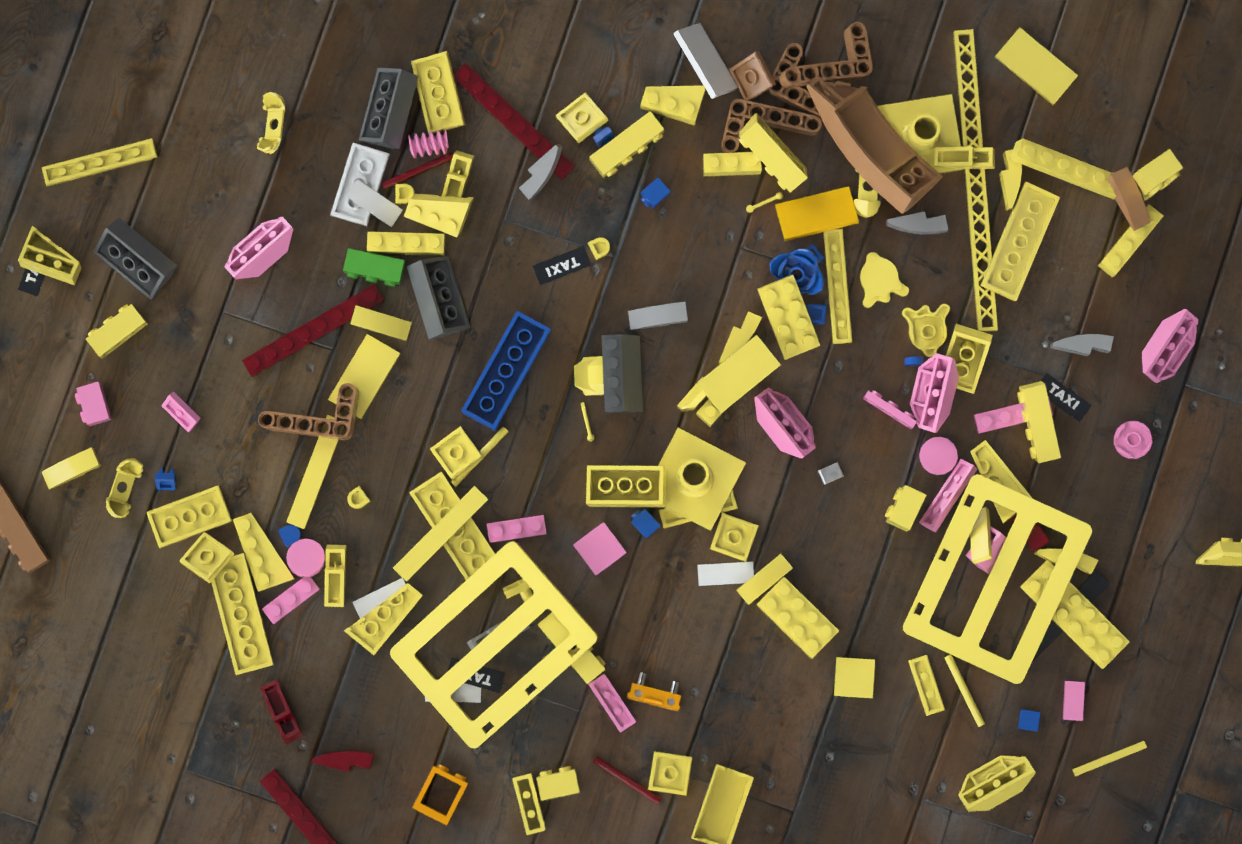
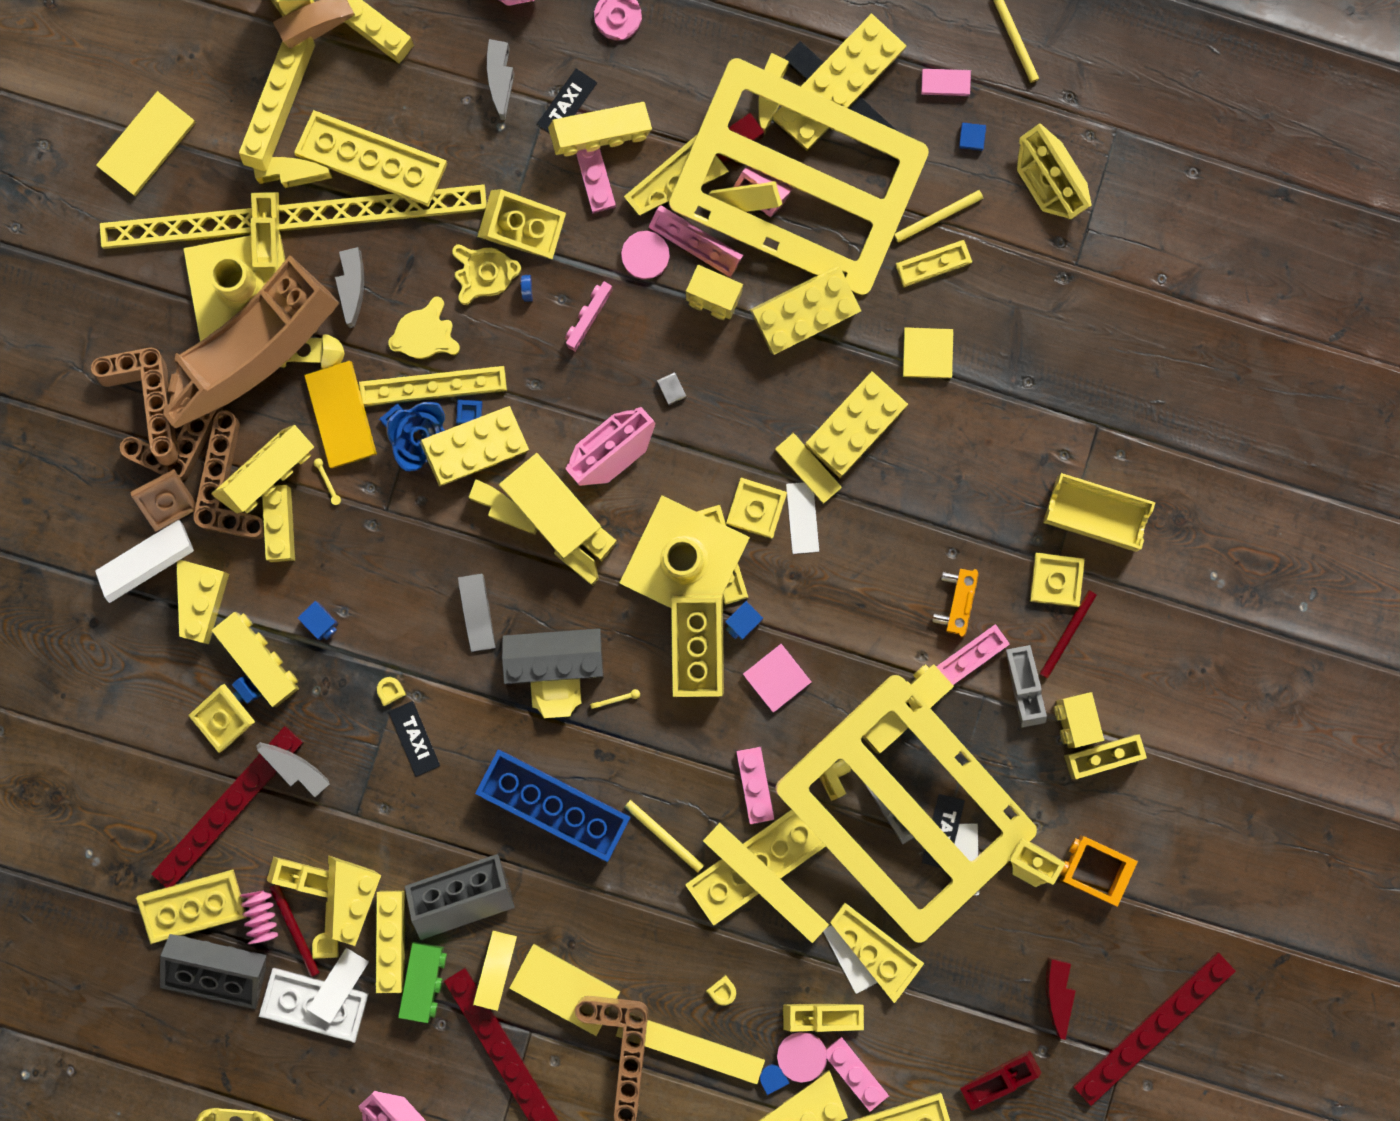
camera: 90 degrees left, 0 degrees up
(447, 745) = (1035, 864): none -> light yellow slope
(456, 453) = (660, 866): light yellow tile -> none
(587, 744) = (1026, 686): none -> light grey slope
(889, 580) = (805, 310): none -> light yellow brick
(934, 392) = (565, 260): bright pink wedge -> none

